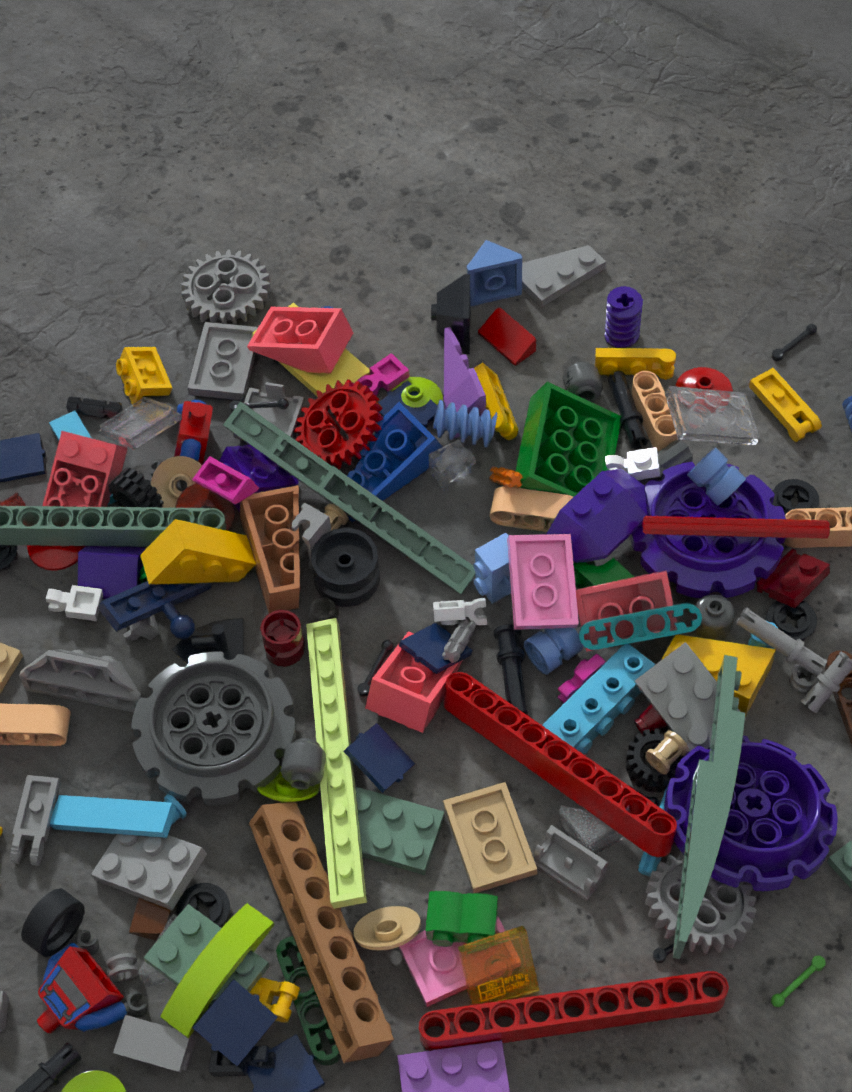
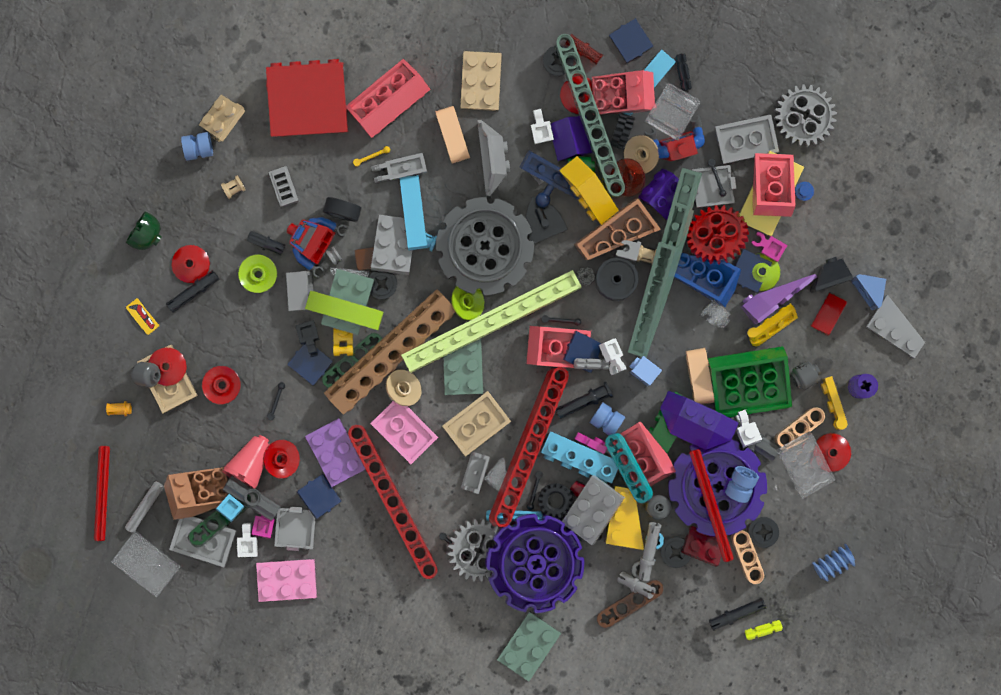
camera: 65 degrees right, 30 degrees up
(142, 373) = (718, 92): yellow bracket -> none
(225, 481) = (644, 184): dark pink slope -> none
(235, 1022) = (320, 331): dark blue piece -> none
(282, 638) = (557, 260): dark red wheel -> none
(303, 763) = (477, 307): dark grey head -> none
(379, 757) = (500, 346): dark blue piece -> none
(460, 917) = (418, 426): green brick -> none
(464, 423) = (737, 315): medium blue piece -> none
(499, 967) = (399, 455): clear yellow tile -> none
(506, 477) = (714, 352): orange axle -> none
(542, 581) = (634, 403): bright pink plate -> none
(630, 419) = (800, 407): black pin -> none
(667, 752) = (555, 507): tan bush -> none
(710, 800) = (521, 542): sand green slope -> none
(777, 354) = (877, 491): black hinge -> none
(785, 404) = (835, 506): yellow plate -> none
(817, 964) = (467, 620): bright green hinge -> none

